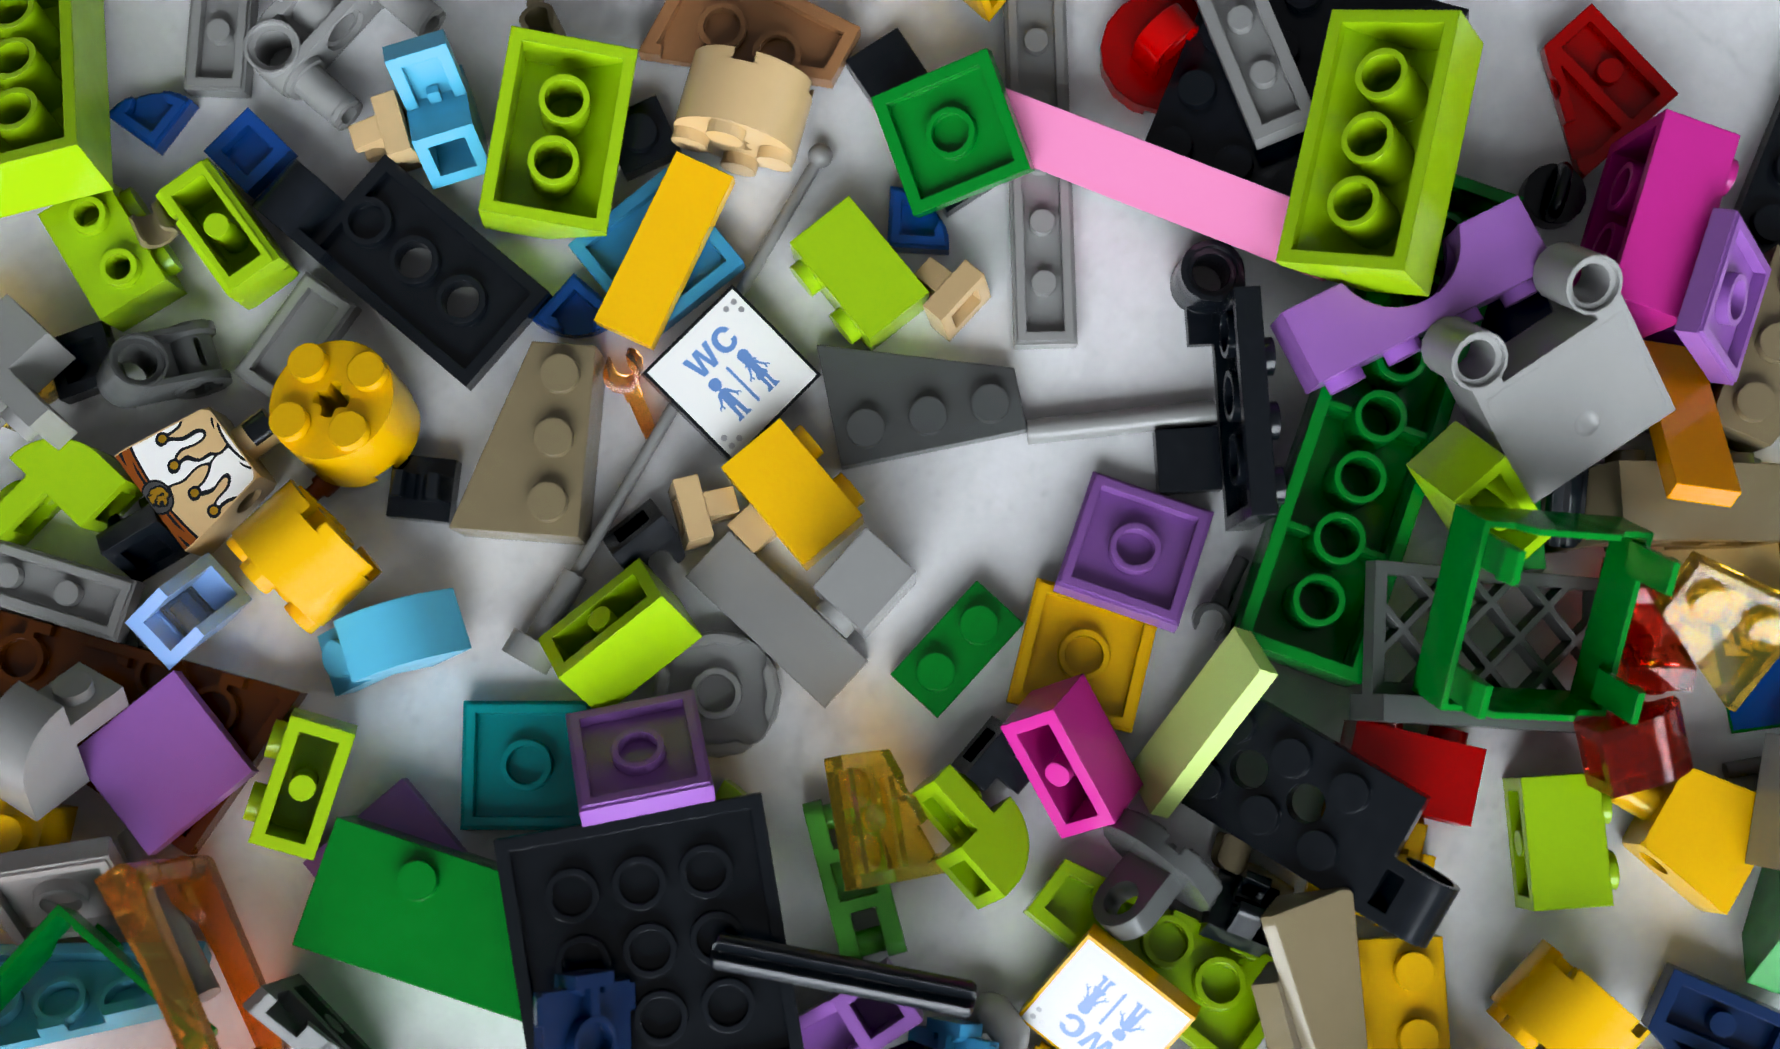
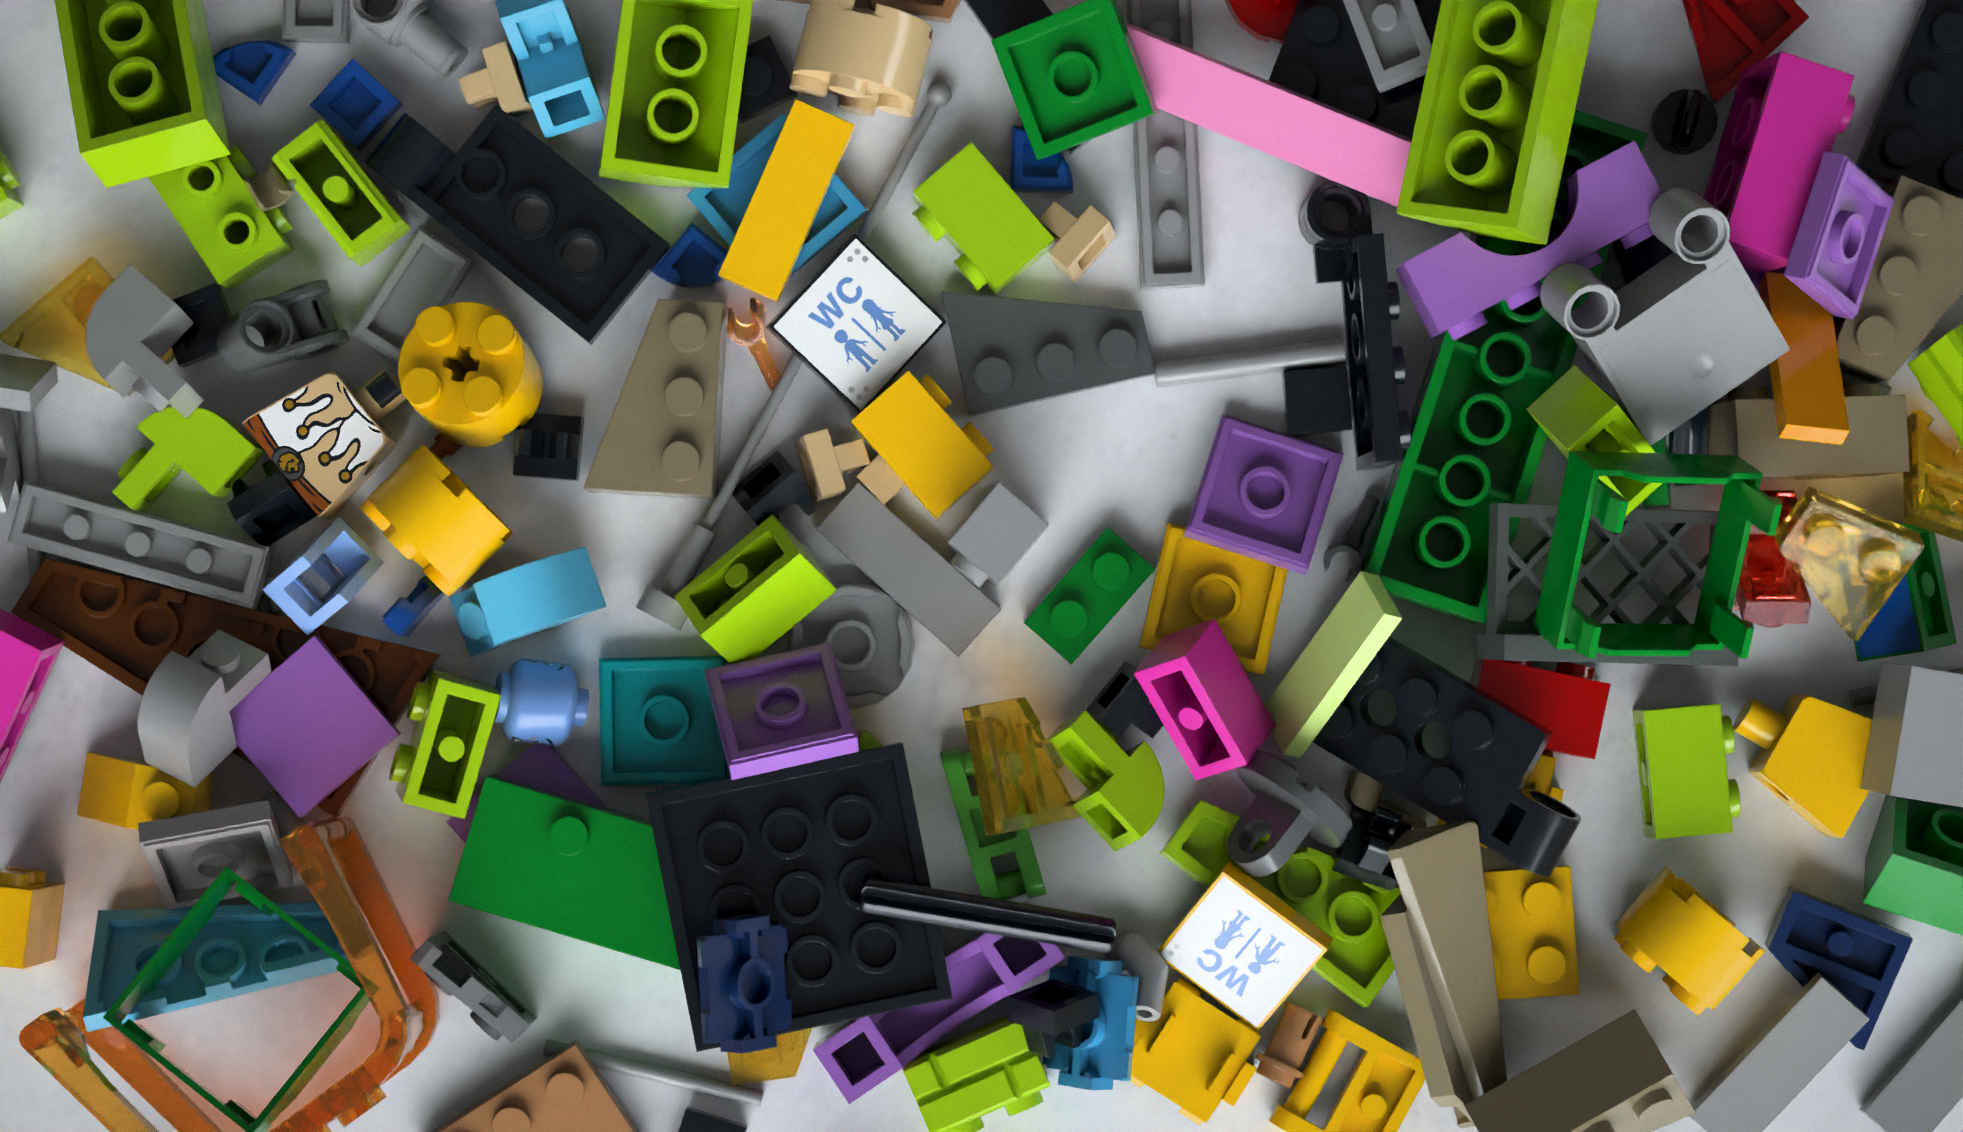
camera: 10 degrees left, 5 degrees up
(273, 655) = (409, 612): none -> blue tile
(400, 743) = (540, 702): none -> medium blue head
(1635, 757) = (1755, 686): clear red brick -> none

